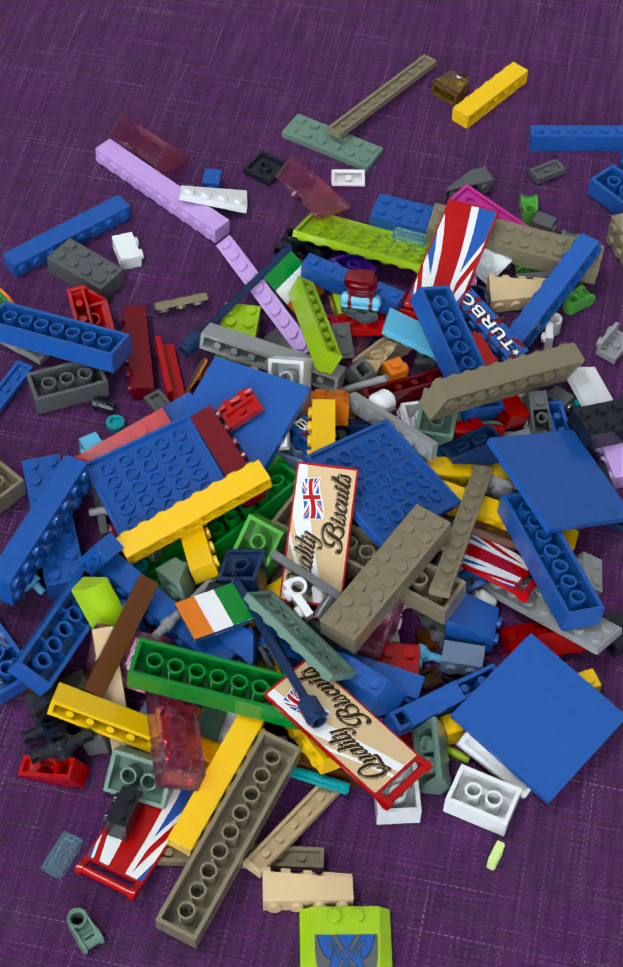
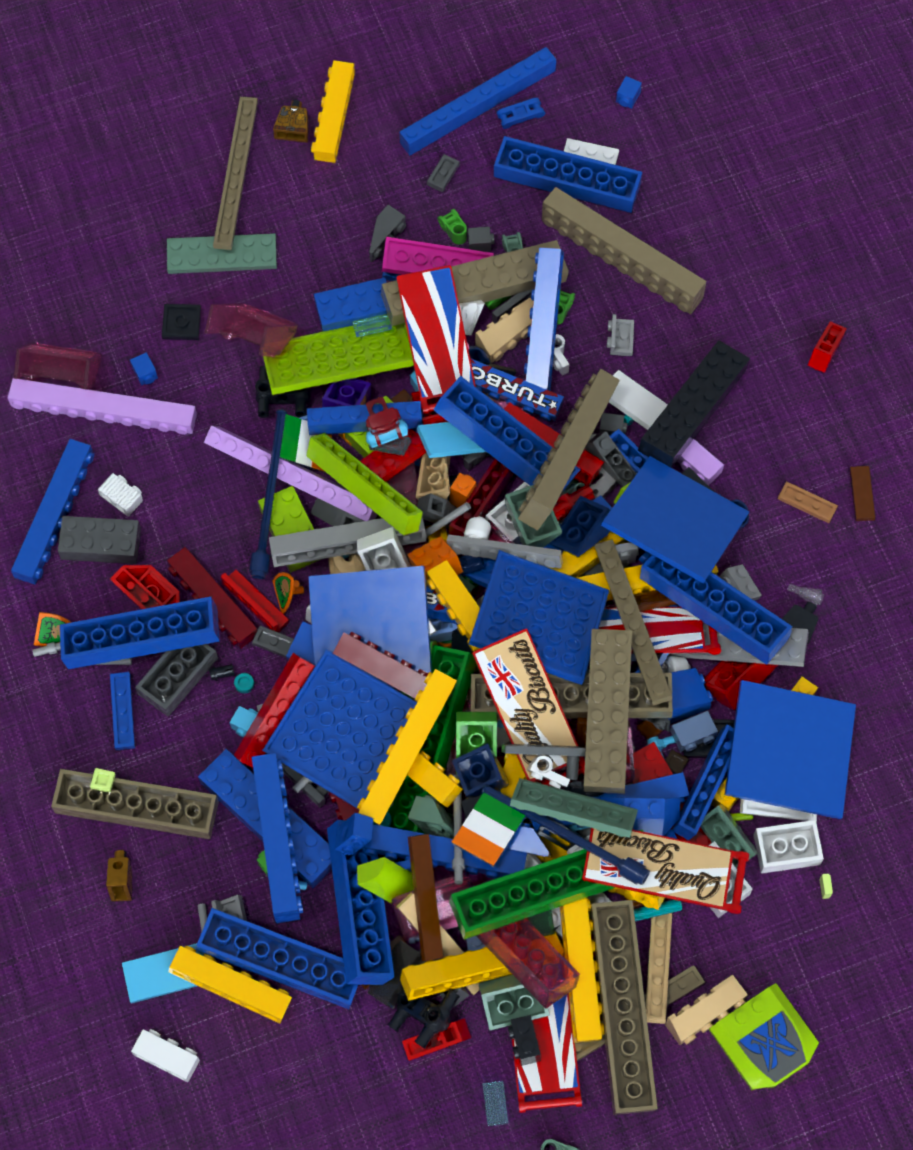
camera: 30 degrees left, 15 degrees up
(180, 302) = (210, 520): dark tan plate -> none
(216, 197) = (164, 386): white wing -> none
(241, 412) = (376, 621): red plate -> none
(344, 340) = (397, 481): dark grey plate -> none
(348, 178) = (265, 287): white slope -> none
(433, 703) = (707, 793): blue tile -> none

